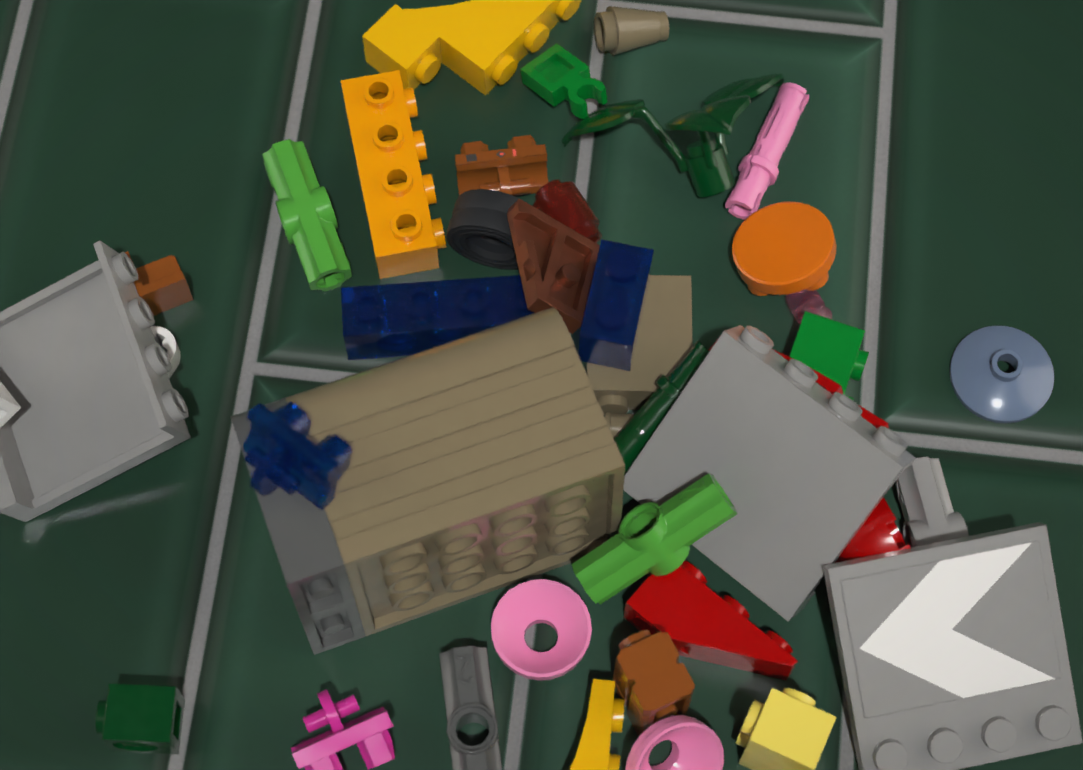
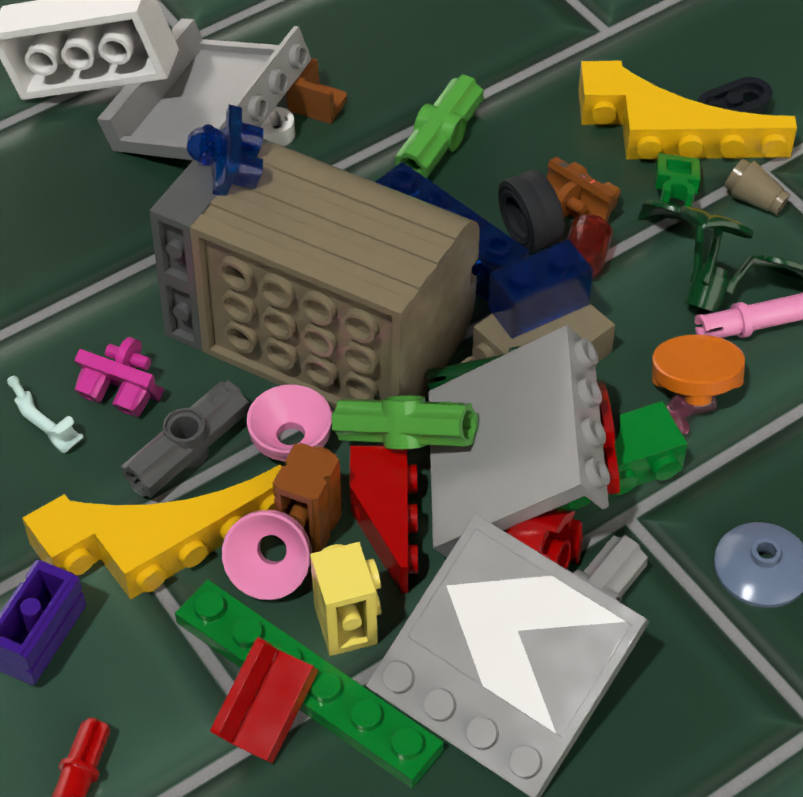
camera: 50 degrees right, 15 degrees down
(141, 718) = (39, 276): dark green brick -> none
(391, 175) = (512, 142): light orange brick -> none
(552, 263) = (527, 230): copper wing -> none

